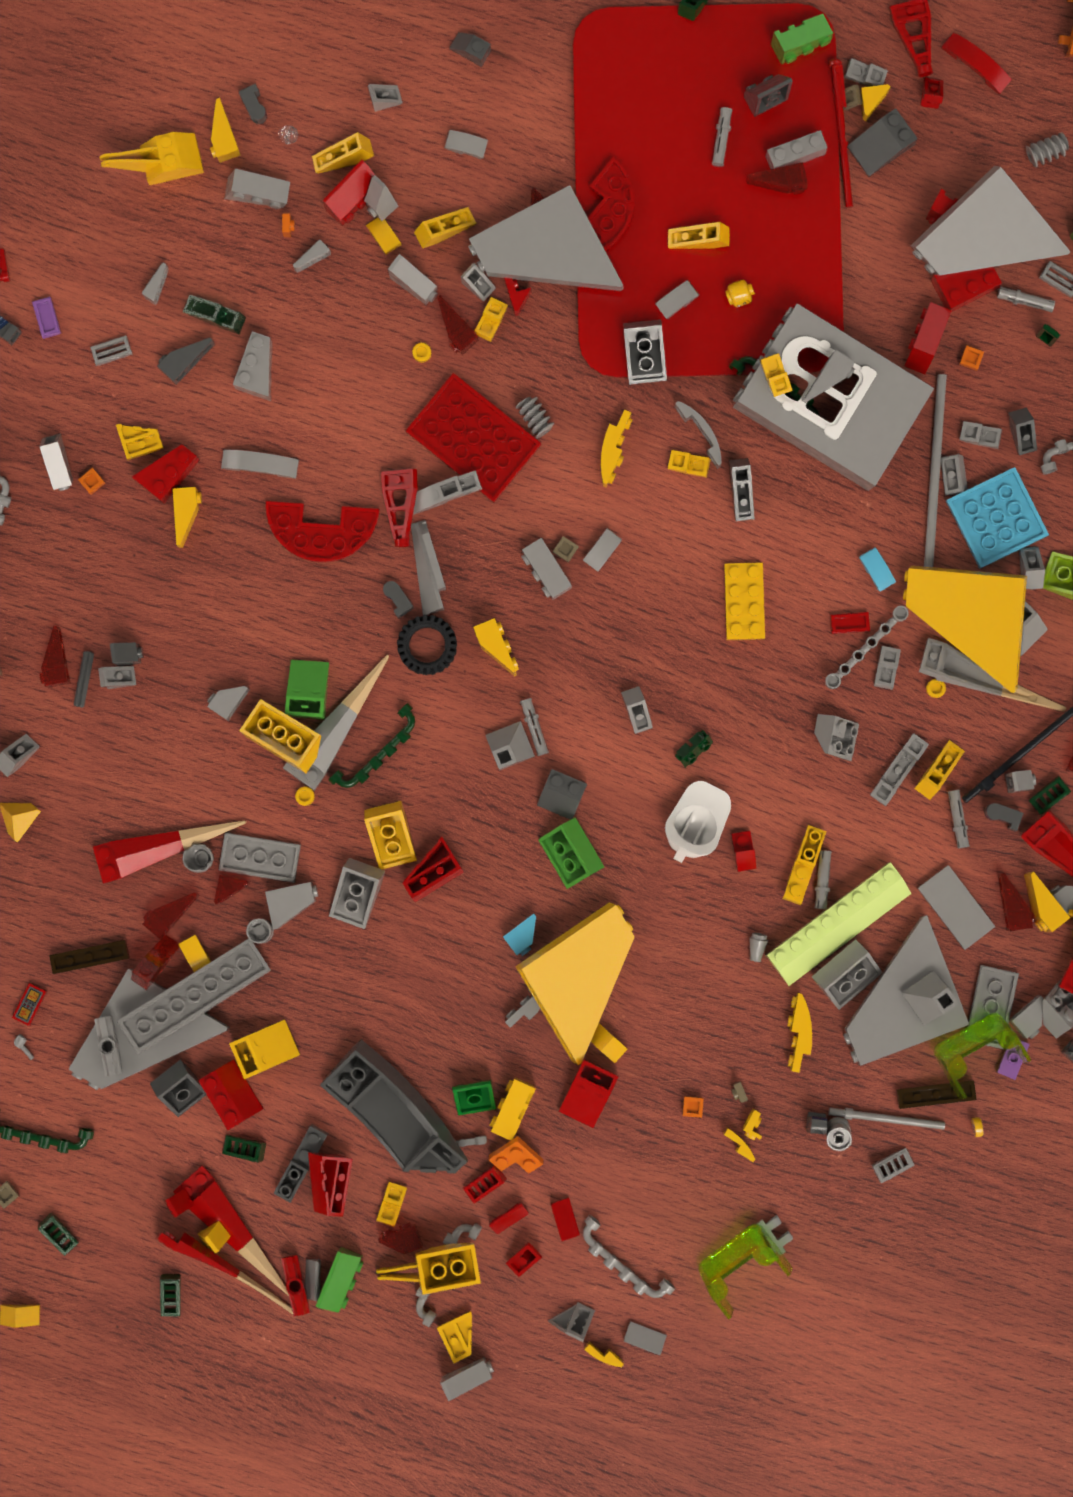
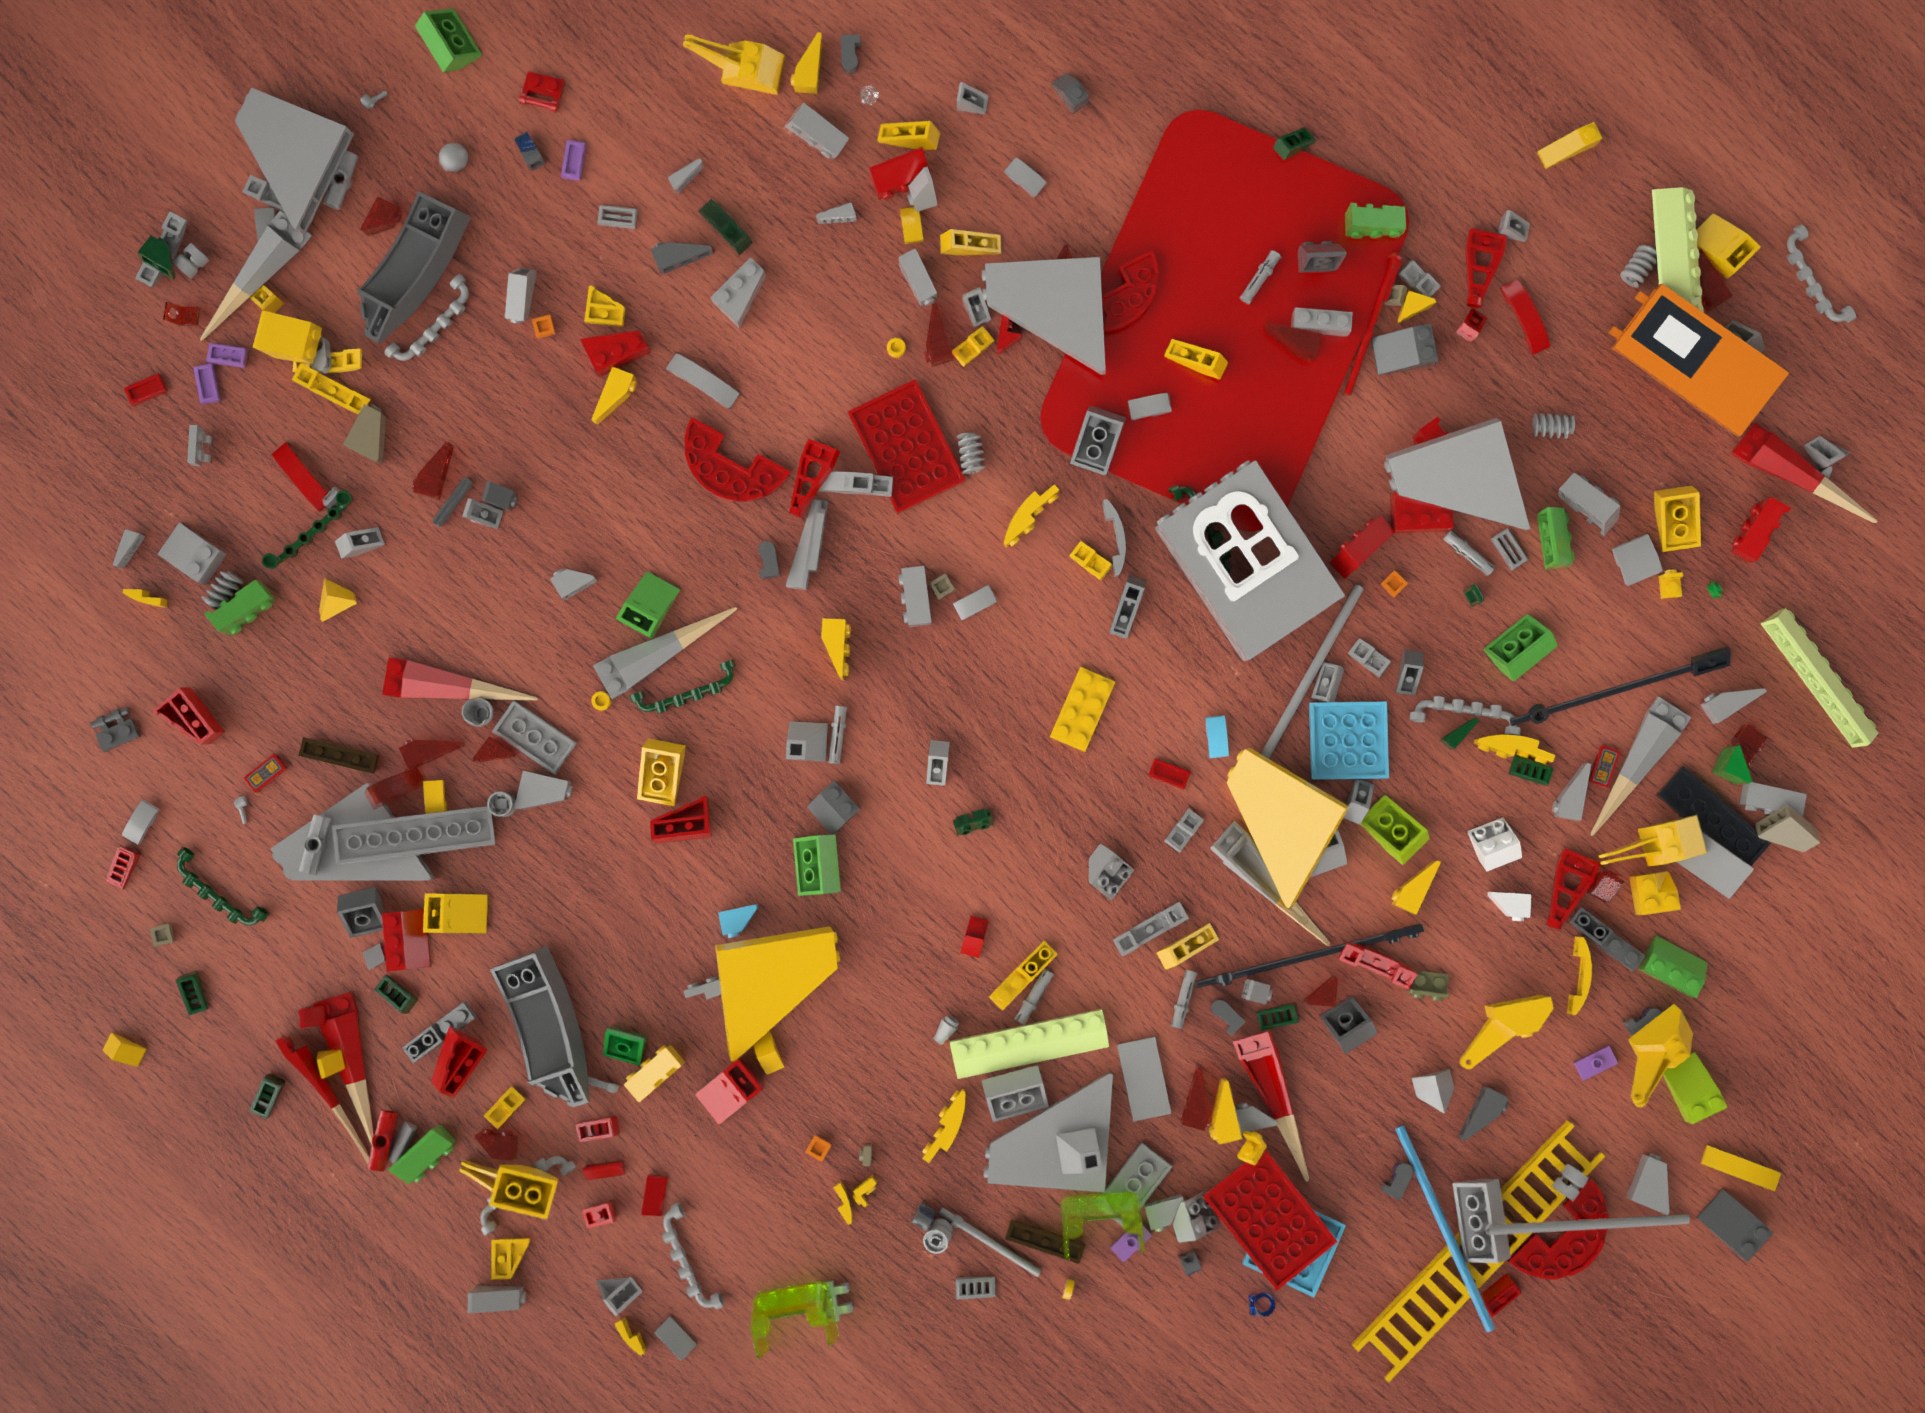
camera: 20 degrees right, 0 degrees up
(209, 1123) = (374, 956): none -> light grey slope
(282, 736) = (604, 636): yellow slope -> none
(288, 225) = (829, 176): orange plate -> none
(356, 893) = (605, 810): light grey slope -> none
(427, 622) = (769, 593): black tyre -> none
(518, 1152) = (636, 1113): orange plate -> none
(697, 820) = (944, 889): white piece -> none
(739, 293) = (1209, 427): yellow head -> none
(775, 375) = (1204, 516): yellow slope -> none
(833, 372) = (1258, 538): light grey slope -> none
(899, 614) = (1128, 819): light grey bar -> none
(935, 688) = (1219, 870): yellow tile -> none

